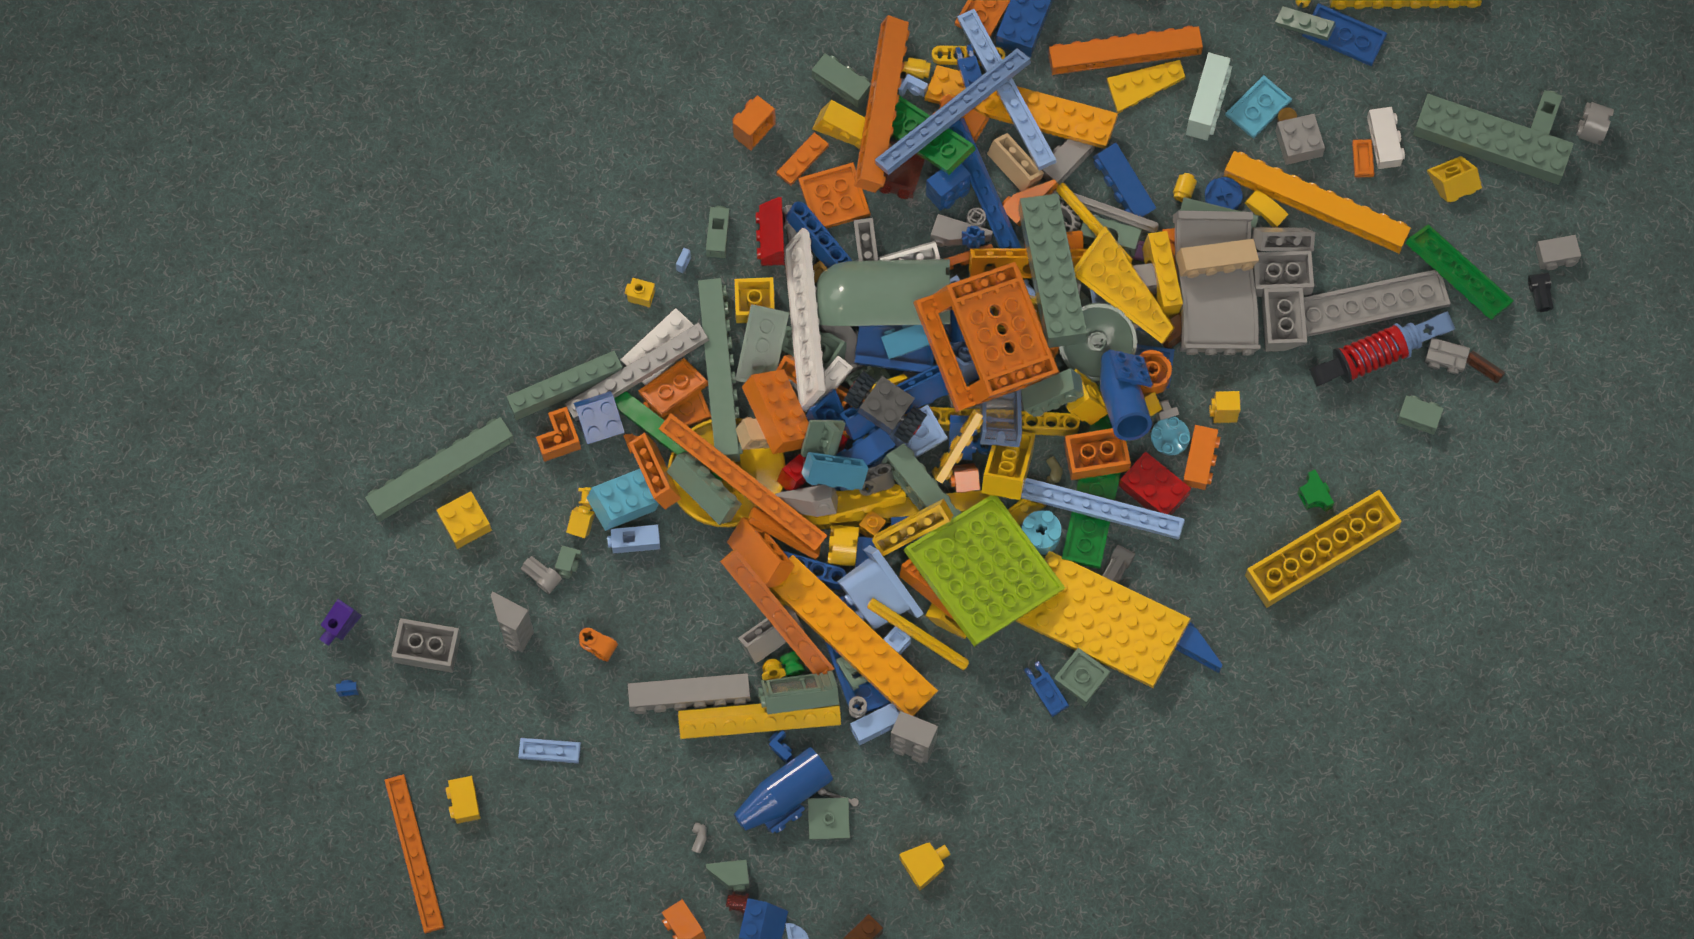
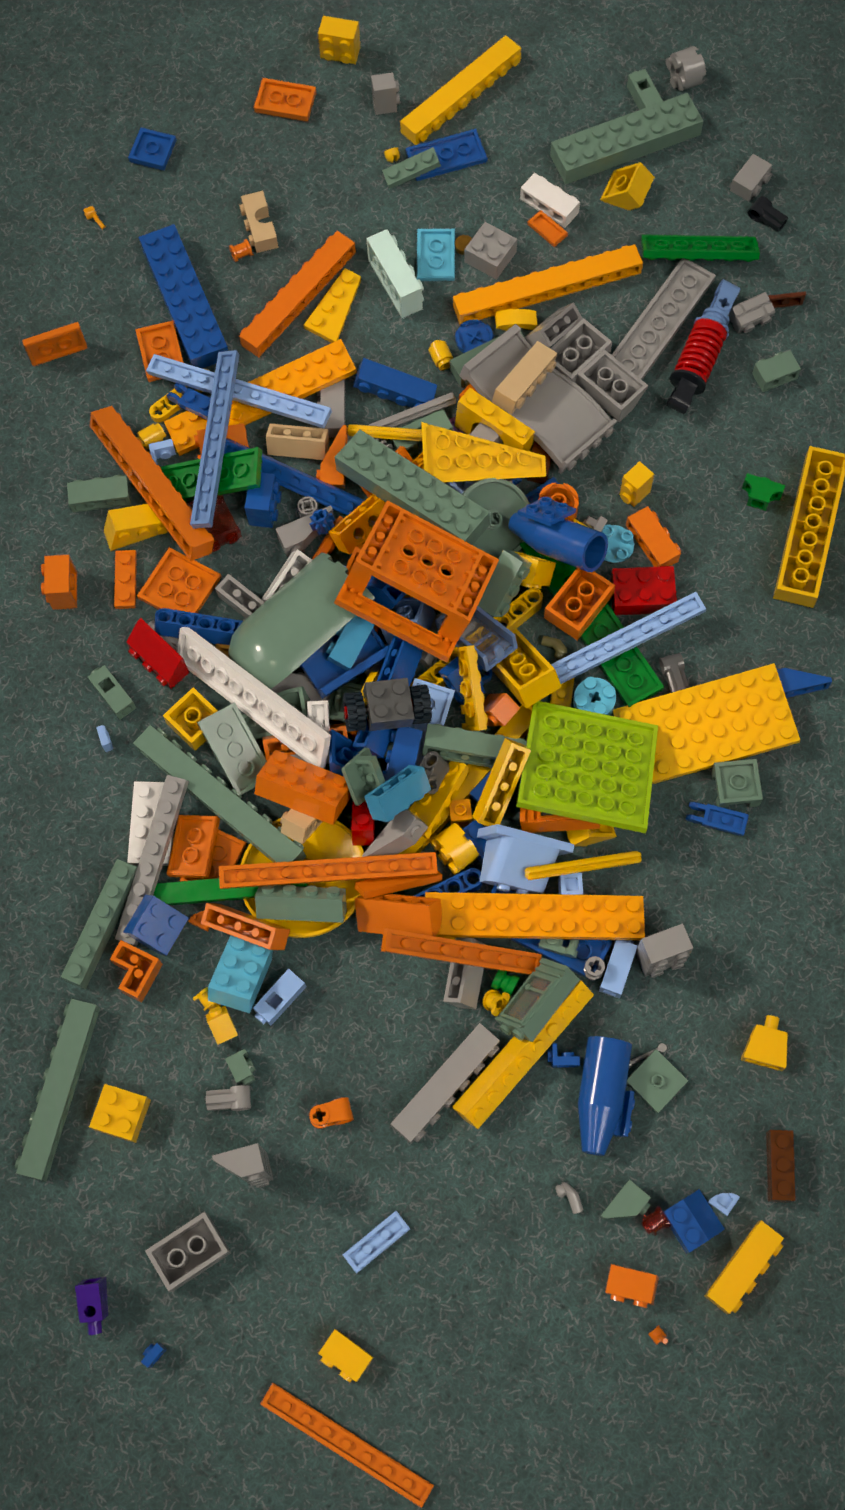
camera: 40 degrees left, 0 degrees up
(640, 292) = (92, 794): yellow brick -> none

